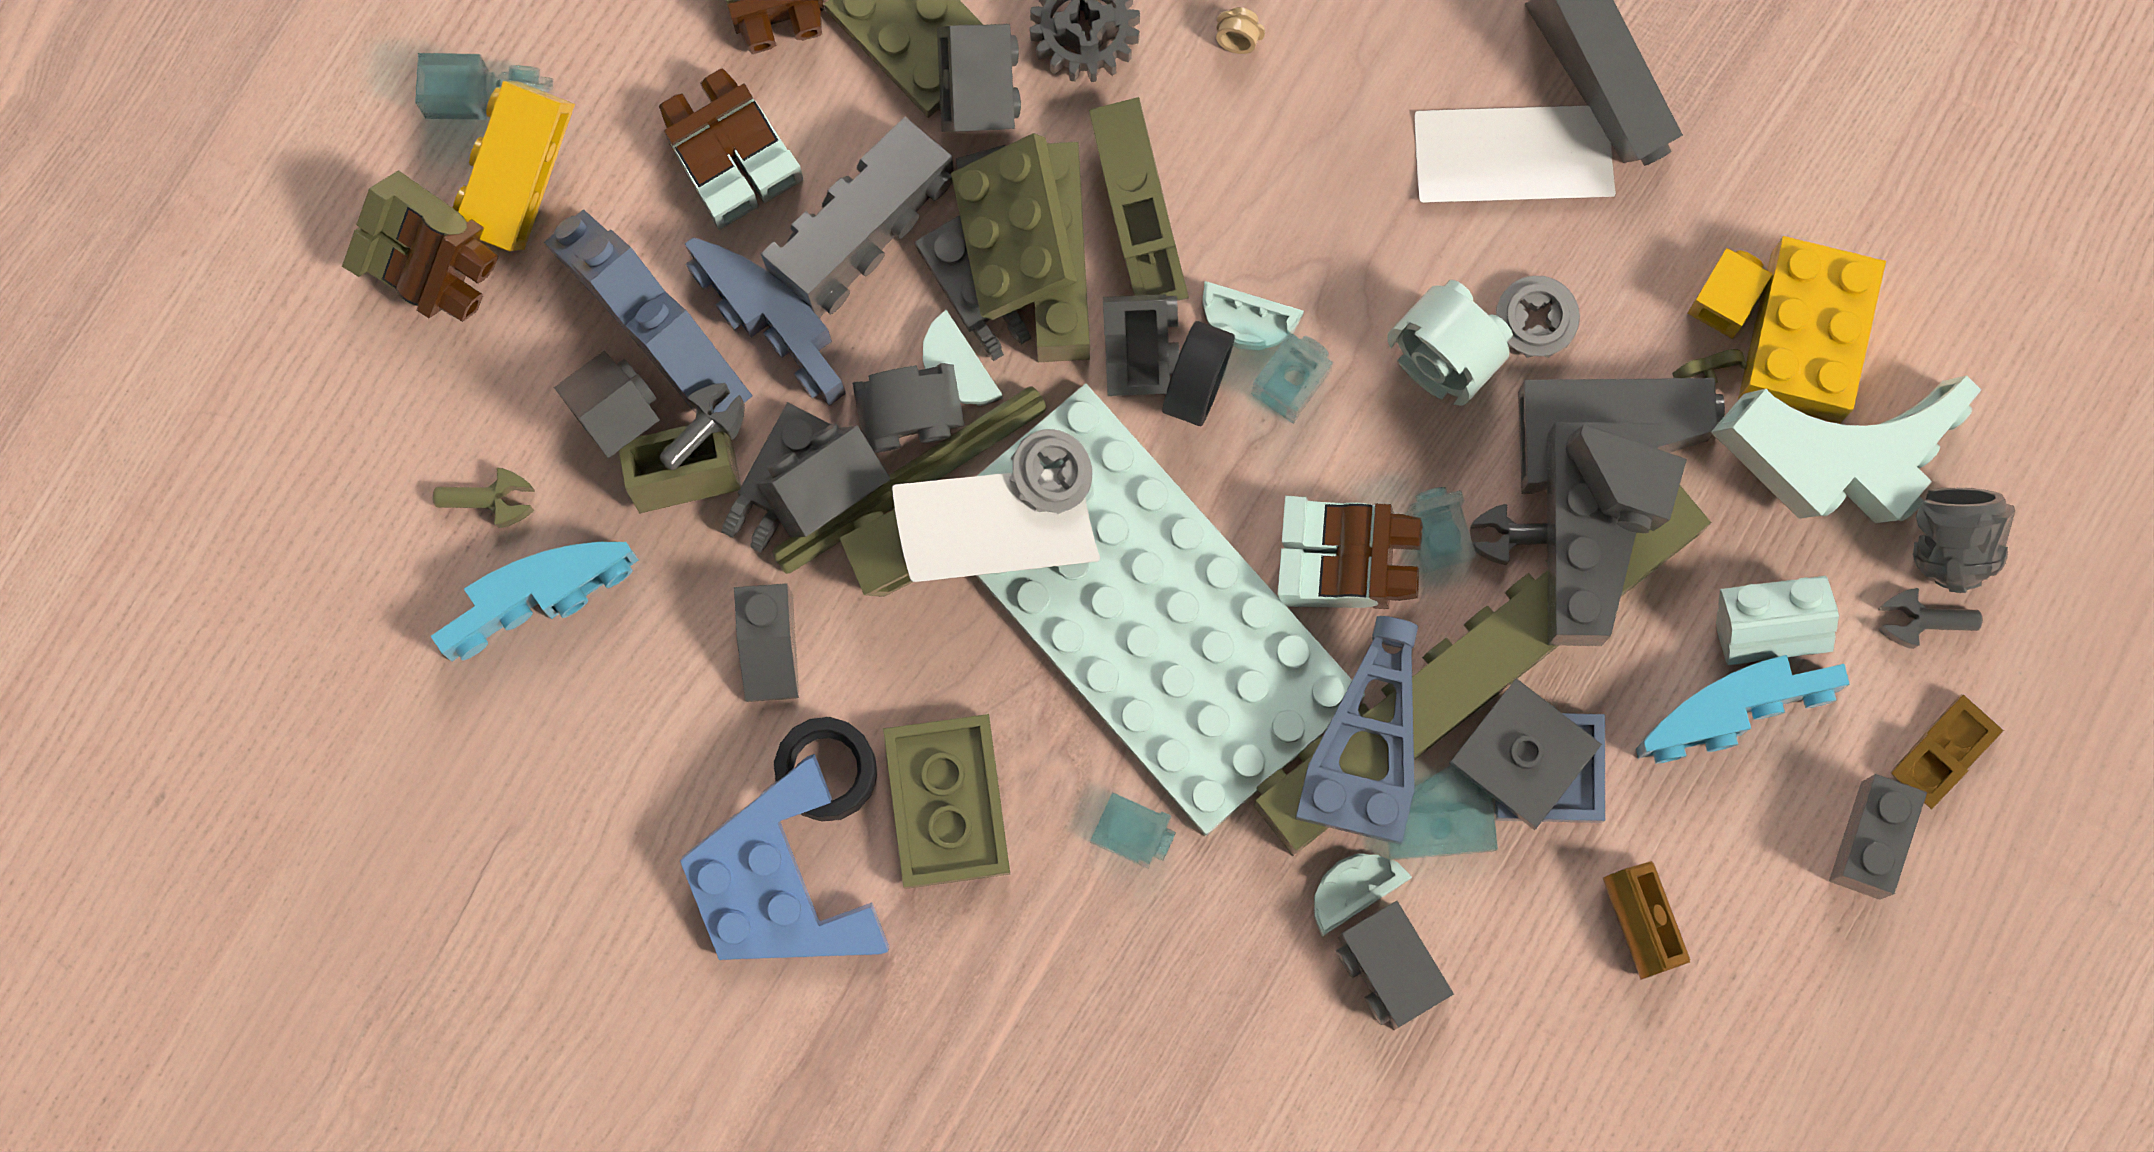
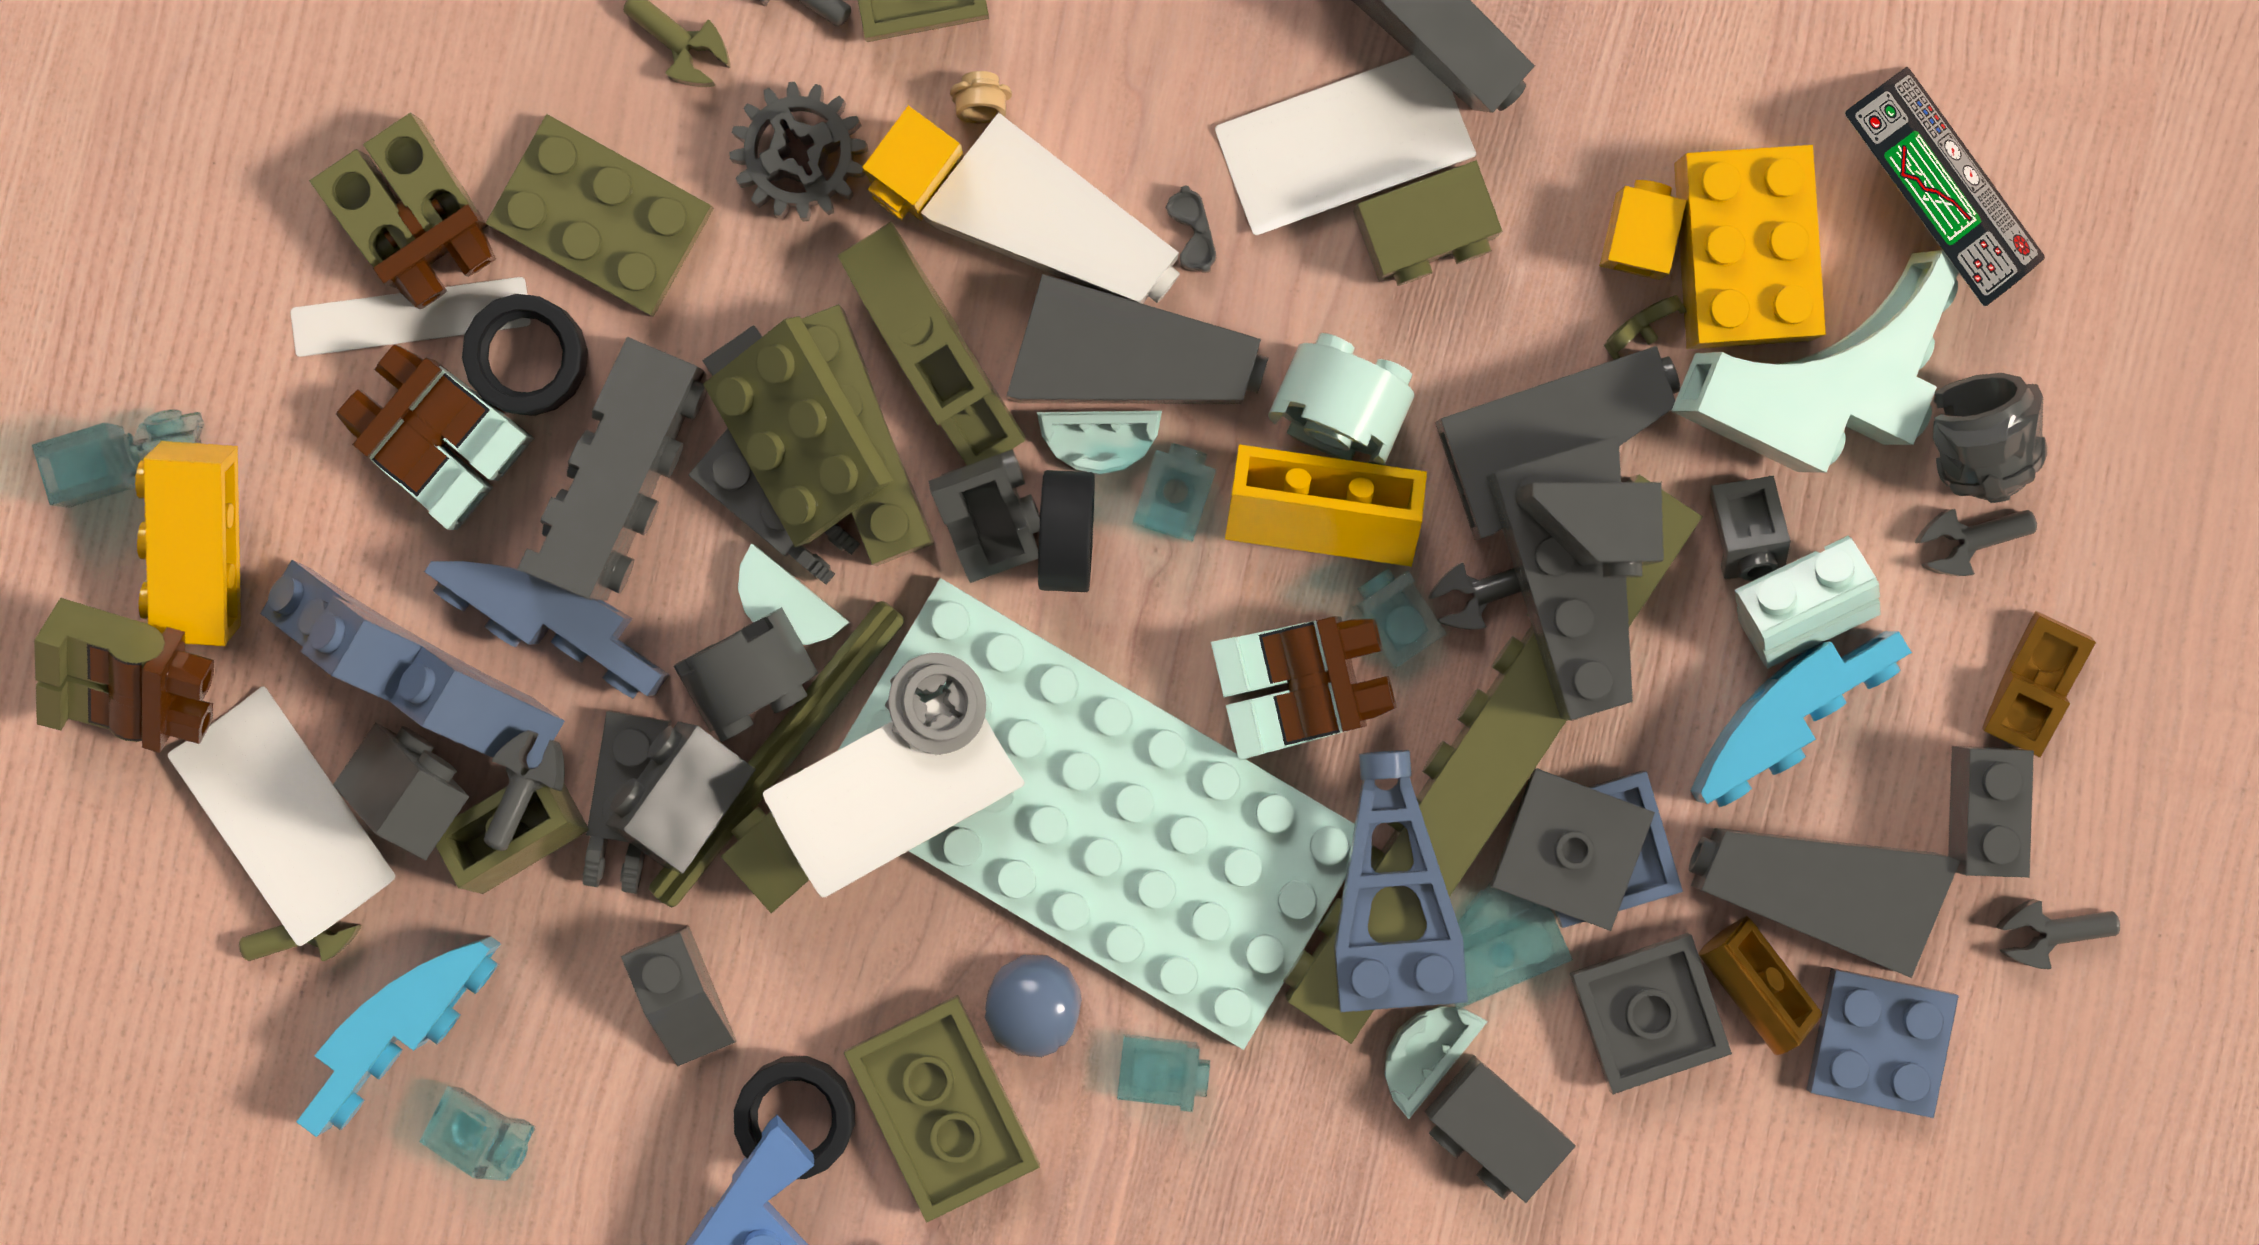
camera: 15 degrees left, 10 degrees up
(504, 403) = (282, 817): none -> white sticker
(567, 701) = (477, 1136): none -> clear light blue bracket
(711, 52) = (394, 319): none -> white sticker
(819, 72) = (476, 354): none -> black tyre
(977, 77) = (696, 261): dark grey brick -> none
(1047, 745) = (1033, 1005): none -> sand blue hair
(1171, 58) = (911, 164): none -> yellow brick
(1263, 135) = (1044, 214): none -> white slope
(1292, 257) = (1120, 351): none -> dark grey slope
(1373, 166) = (1189, 210): none -> dark grey piece
(1410, 420) = (1326, 505): none -> yellow brick
(1537, 293) = (1459, 321): light grey gear -> none
(1548, 913) = (1650, 1013): none -> dark grey plate
(1561, 232) = (1427, 223): none -> olive brick
(1730, 863) = (1840, 892): none -> dark grey slope
(1733, 1002) = (1882, 1043): none -> sand blue plate
(1747, 548) = (1750, 527): none -> dark grey bracket
(1902, 958) = (2054, 931): none -> dark grey bar
(1983, 331) = (1945, 186): none -> sticker

